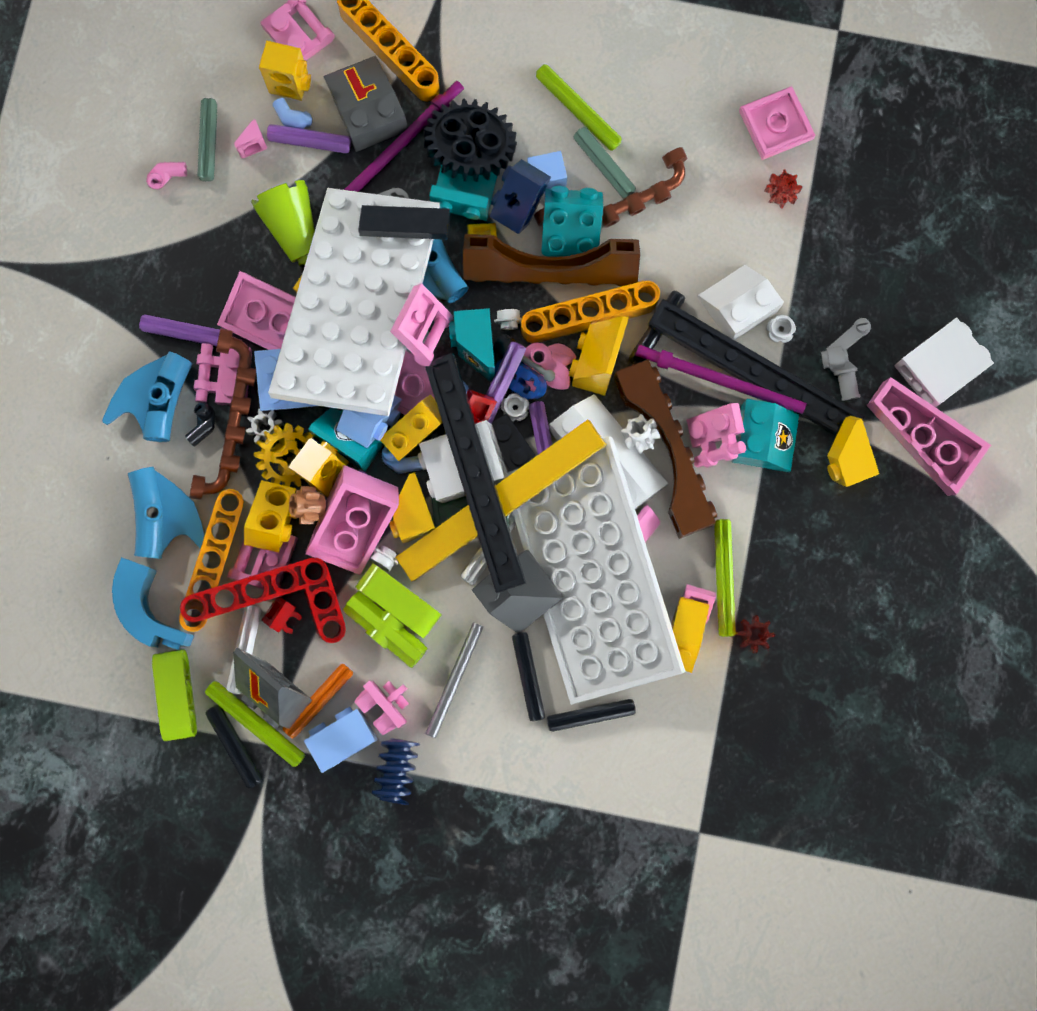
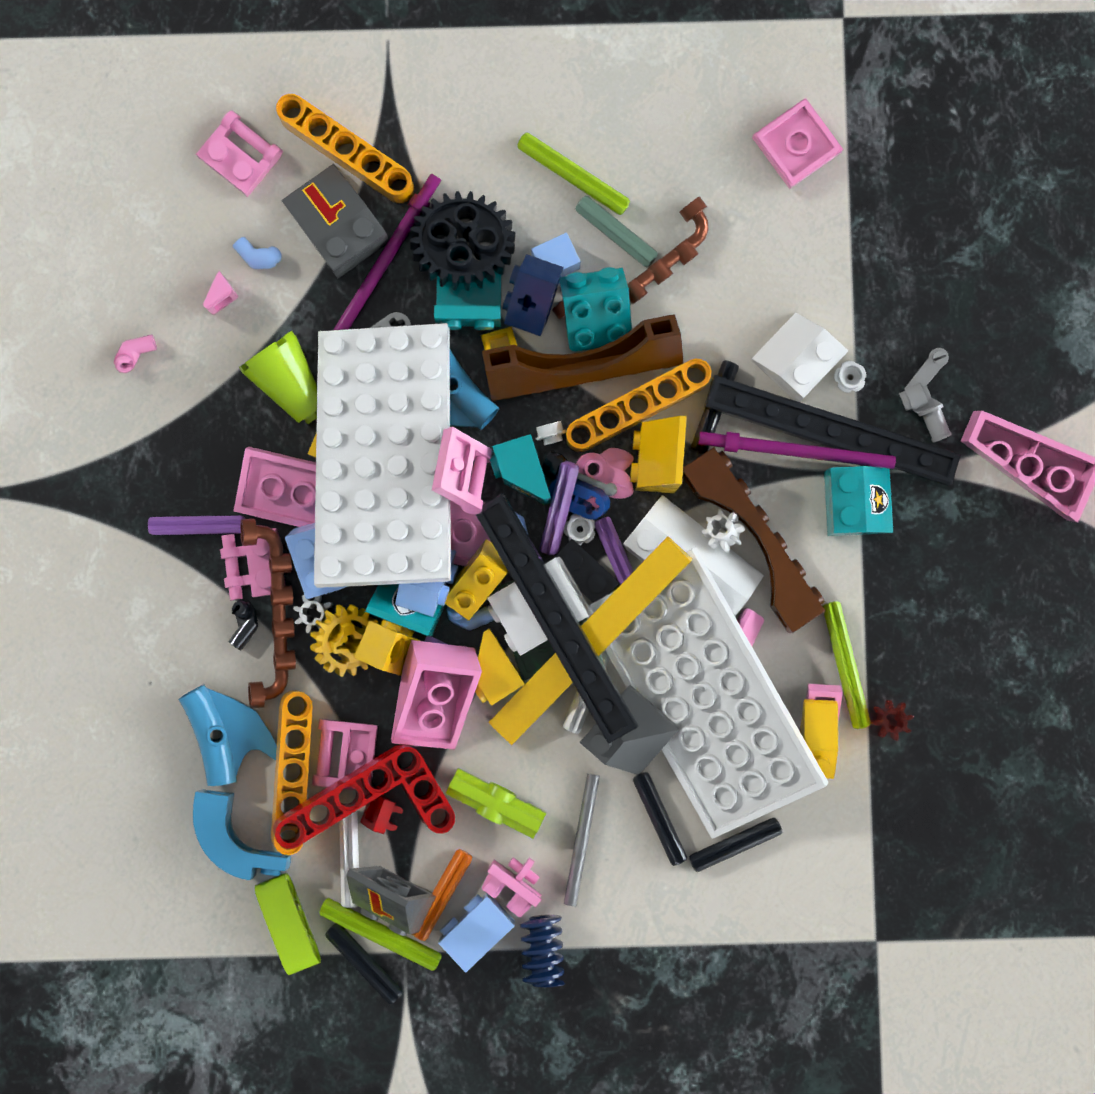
camera: 10 degrees left, 5 degrees up
(141, 393) = (168, 607): dark azure pin -> none
(207, 139) = (170, 302): sand green axle -> none
(266, 515) = (345, 711): yellow brick -> none
(284, 70) = (239, 208): yellow brick -> none
(307, 505) = (383, 693): nougat gear -> none
(308, 138) = (282, 276): medium lavender axle -> none
(384, 558) = (476, 726): white plate -> none
(398, 600) = (502, 769): lime beam -> none
(404, 222) = (415, 357): black tile -> none
(481, 405) = (544, 539): red tile -> none
(715, 426) = (804, 503): bright pink plate -> none
(783, 182) = (825, 211): clear red gear -> none
(851, 454) = (955, 502): yellow slope -> none
(944, 363) = (1036, 377): white brick -> none

